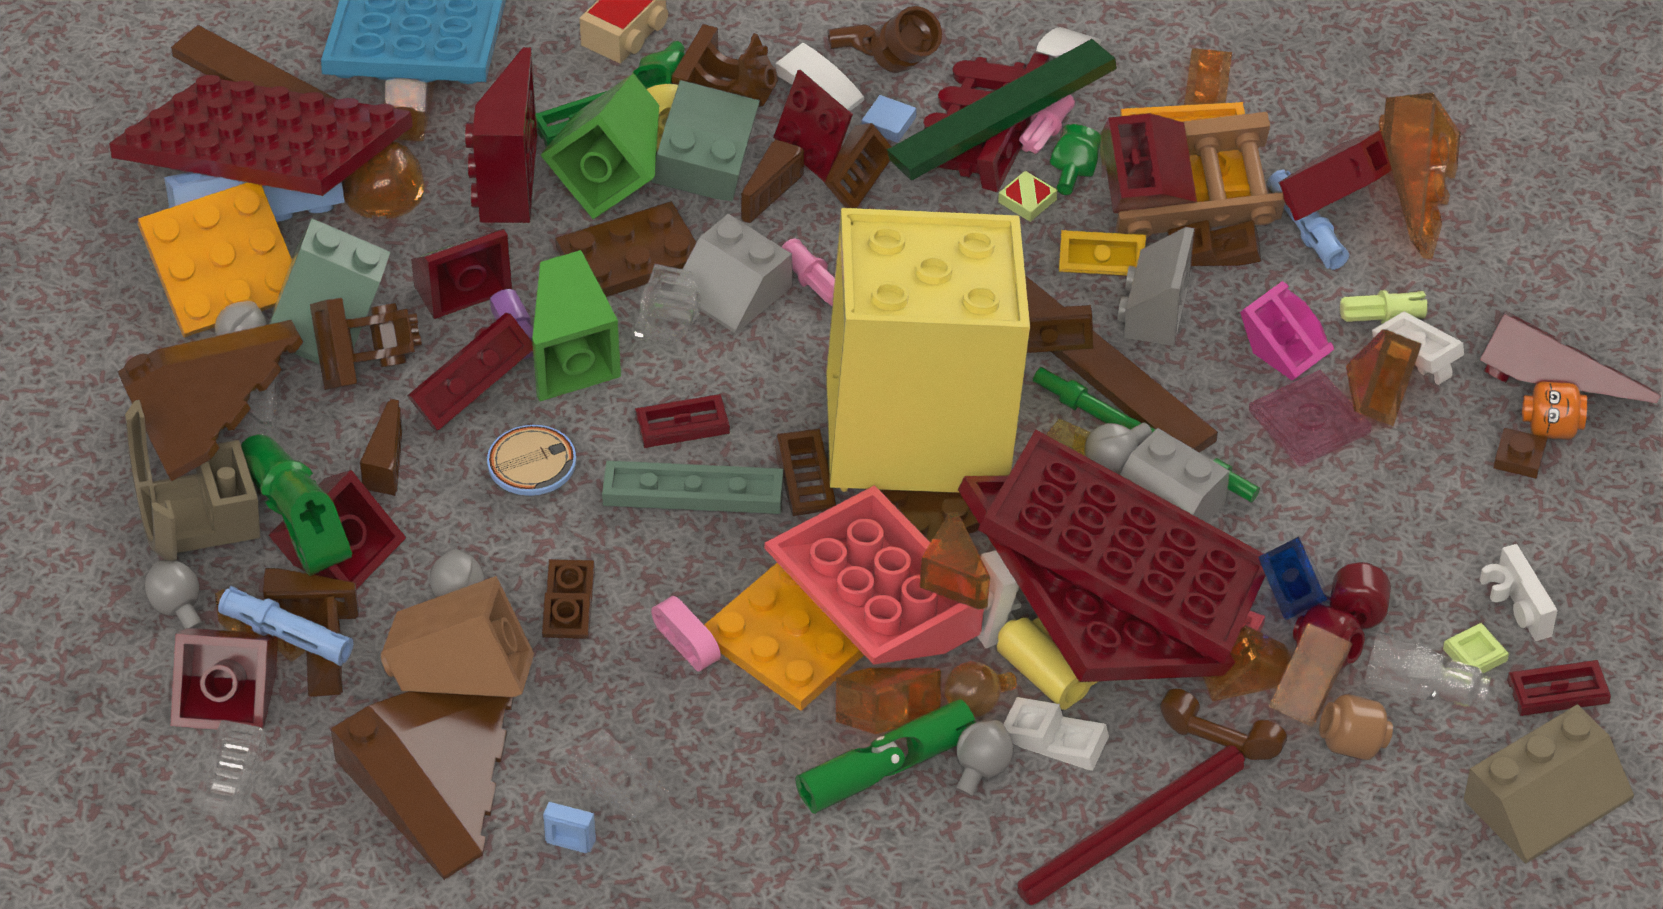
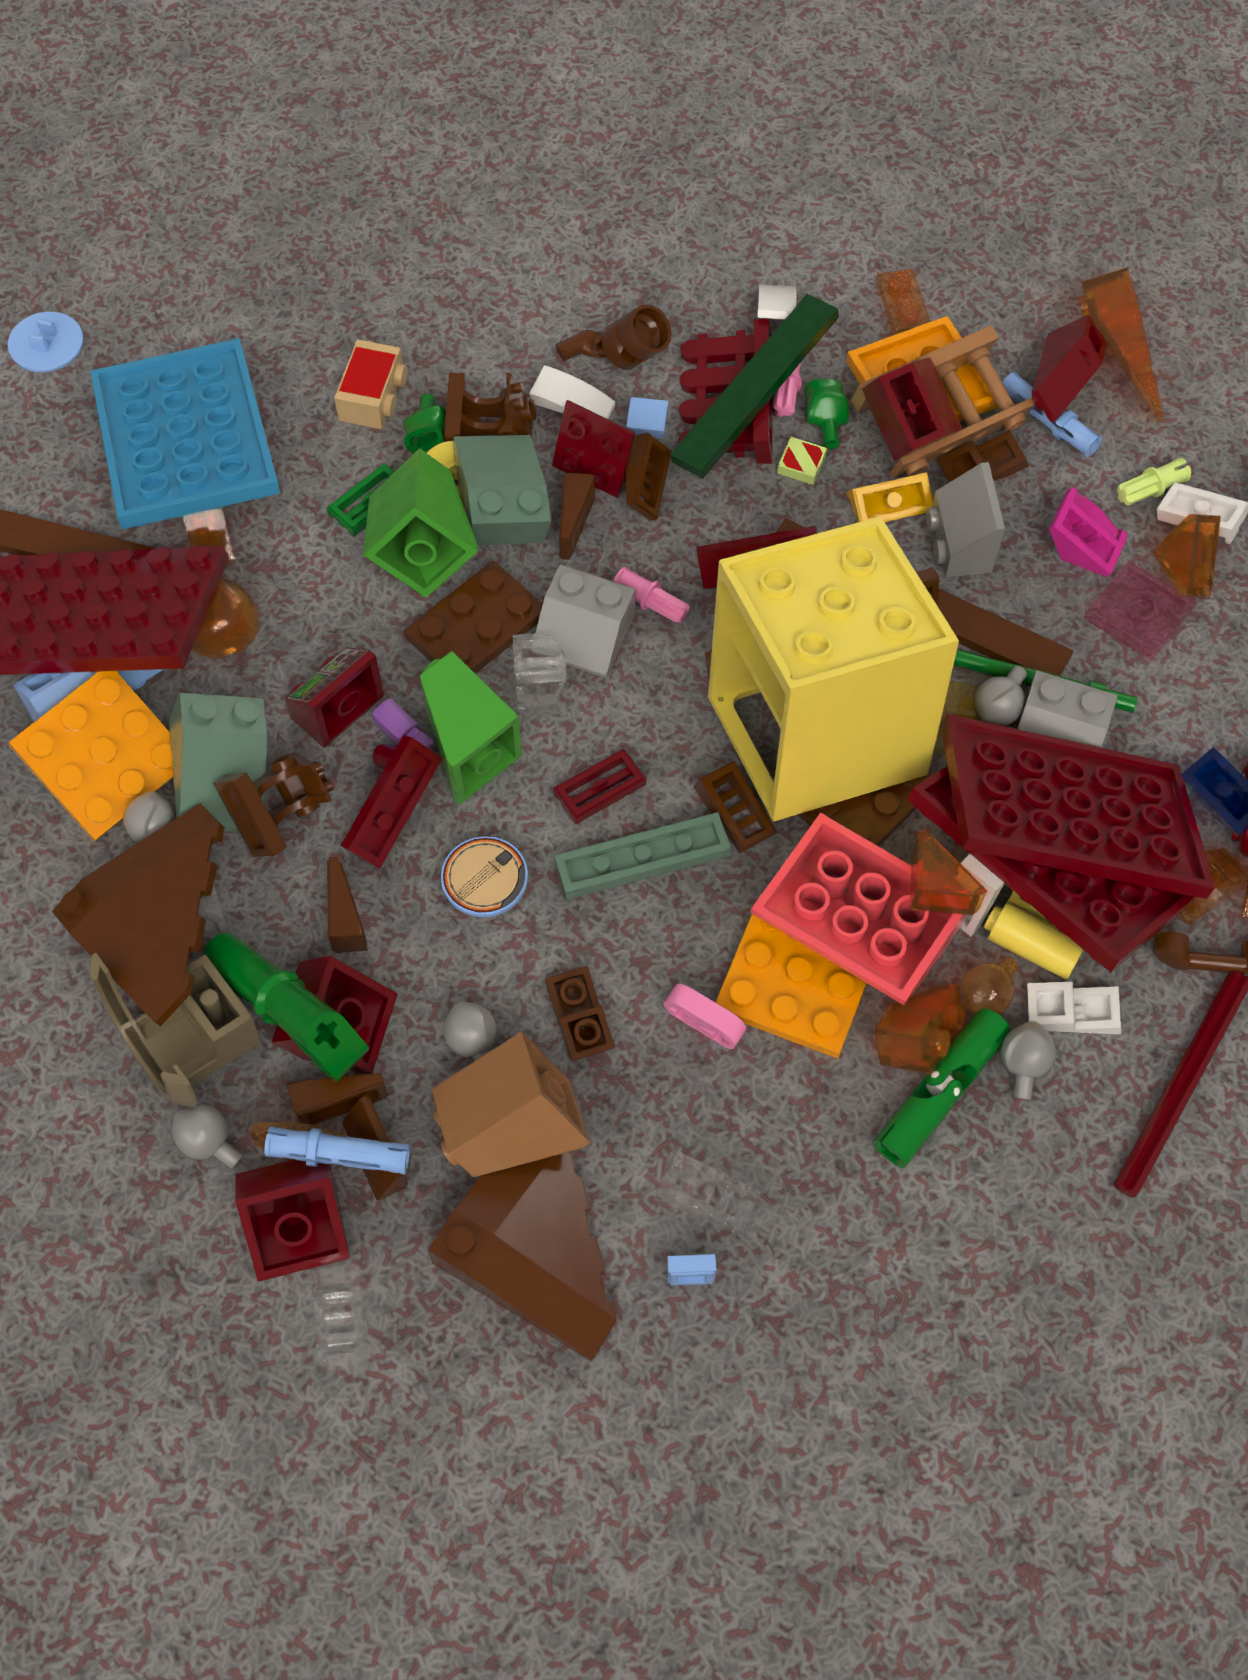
camera: 20 degrees left, 15 degrees up
(505, 145) = (328, 556): dark red slope -> none

